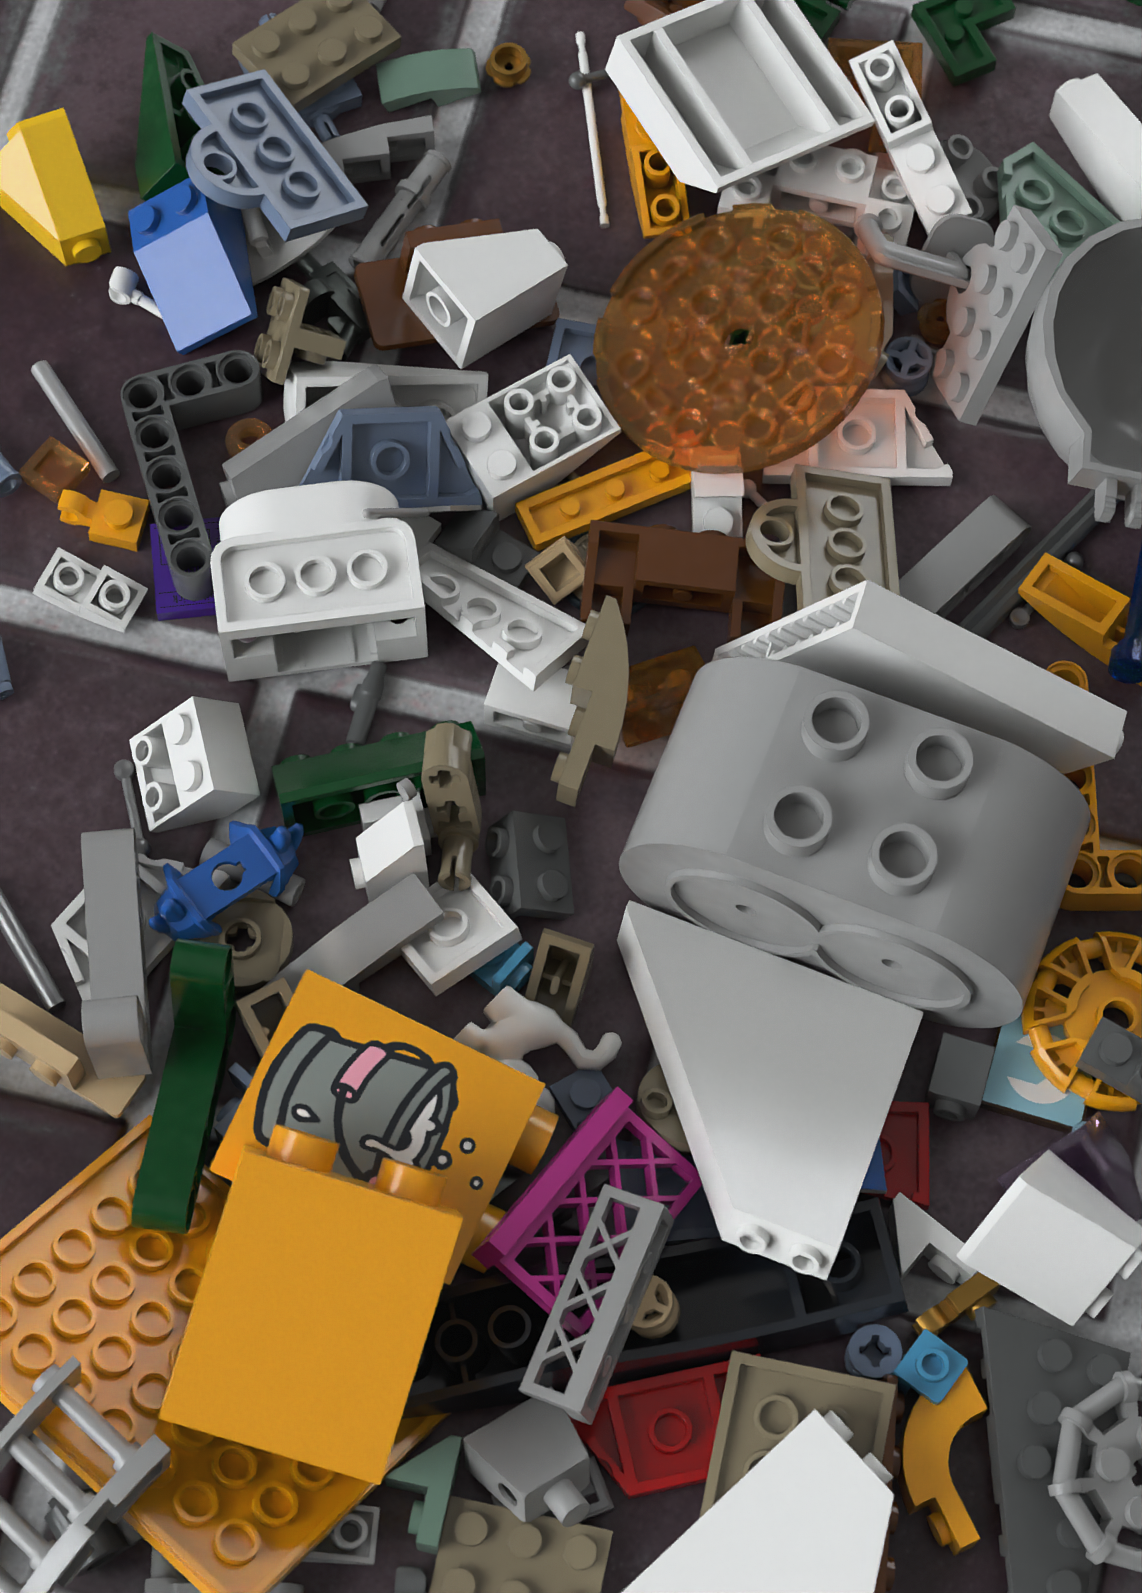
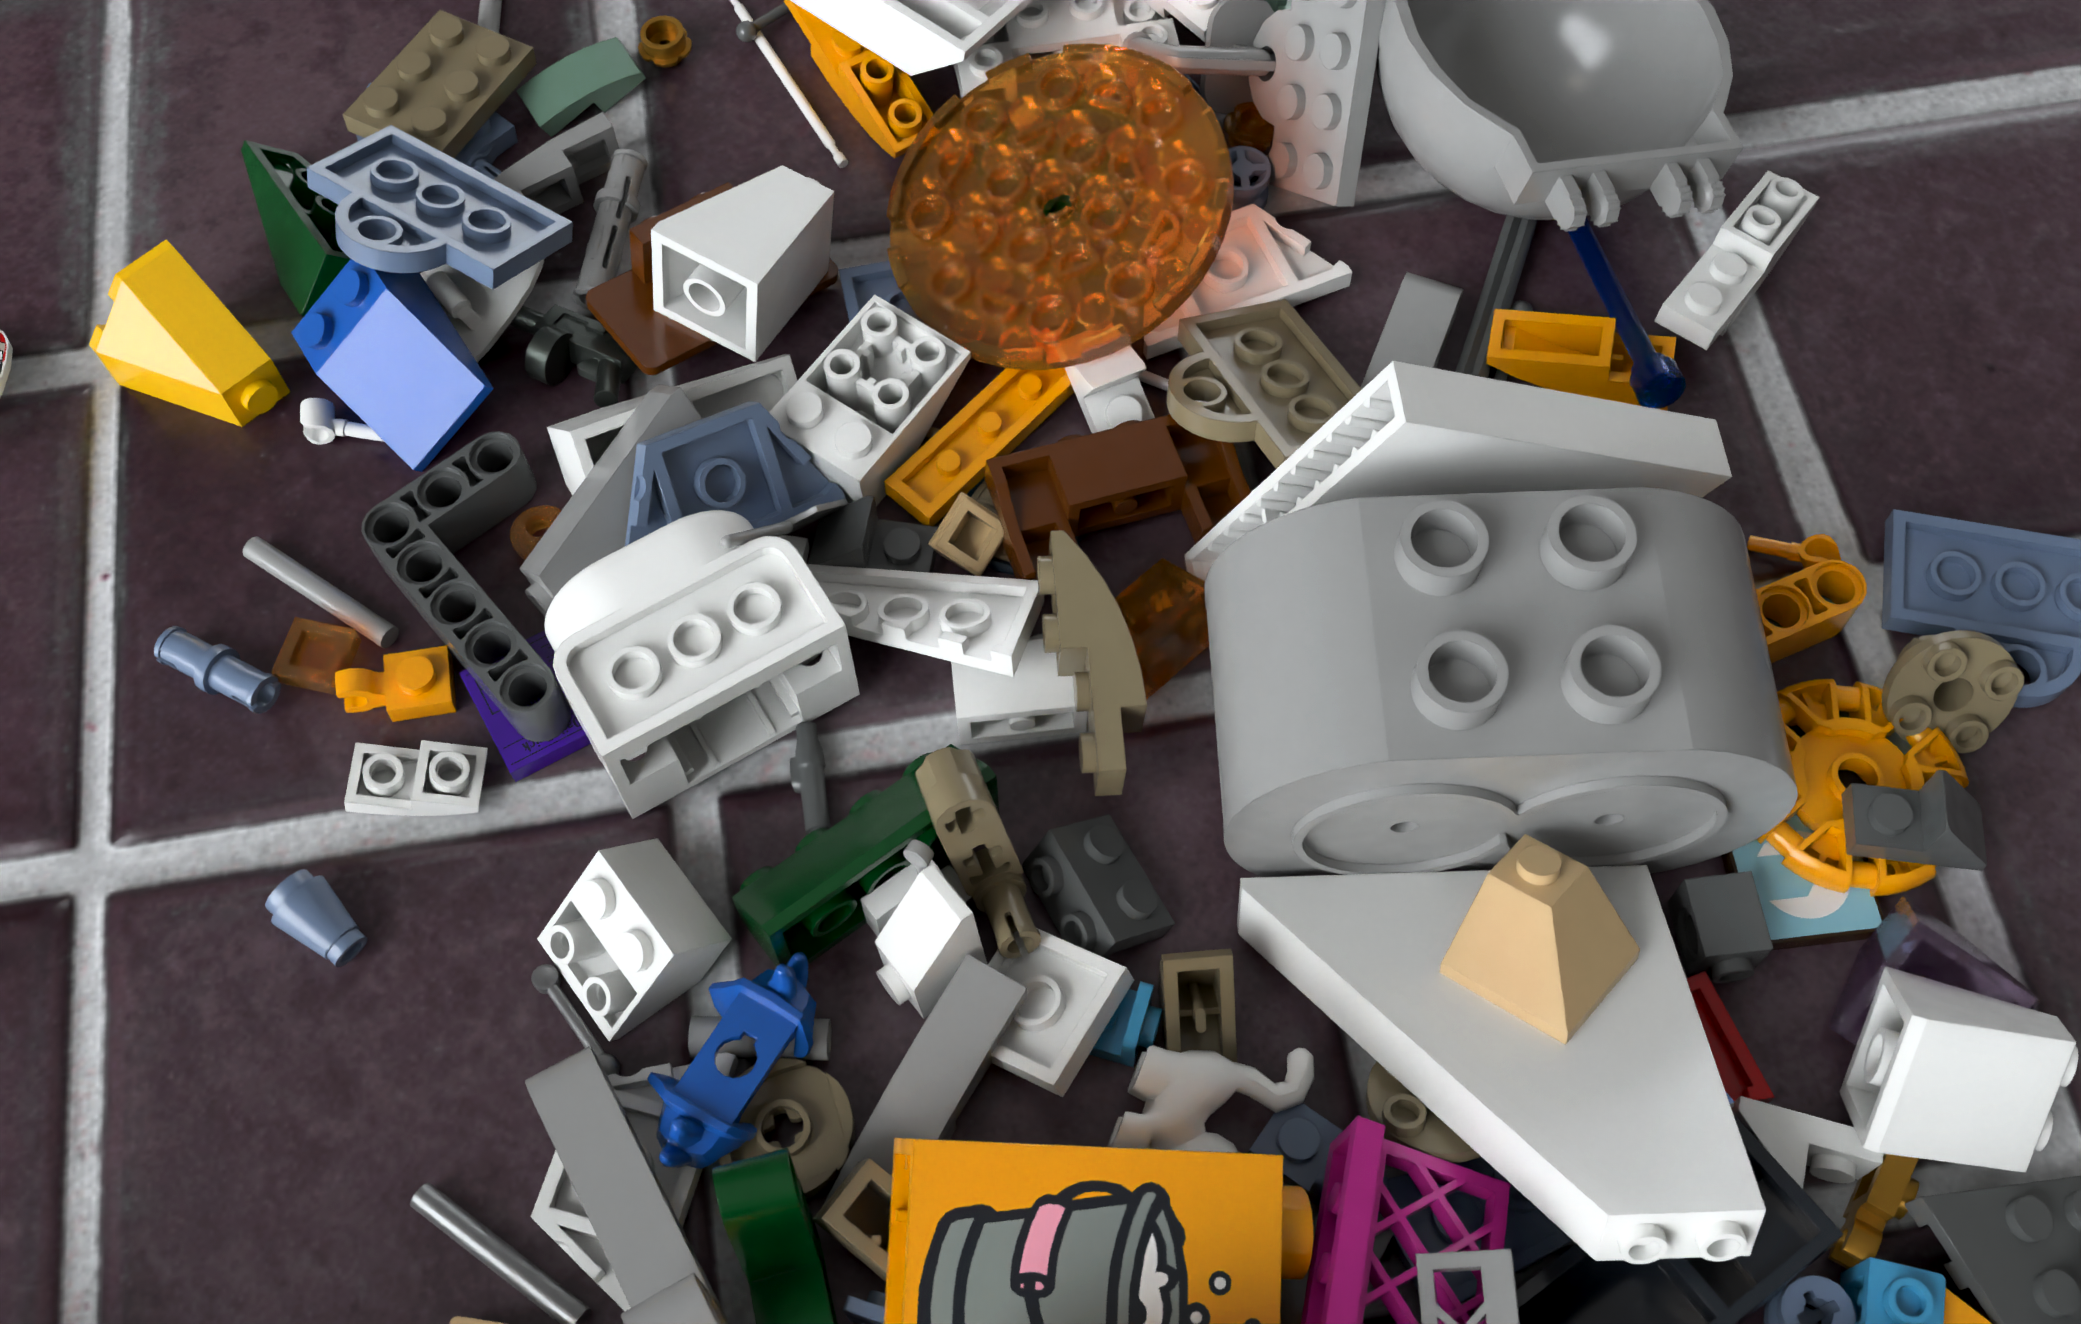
camera: 20 degrees left, 5 degrees down
(290, 336) = (543, 395): dark tan bracket -> none
(804, 1026) = (1541, 940): none -> tan slope

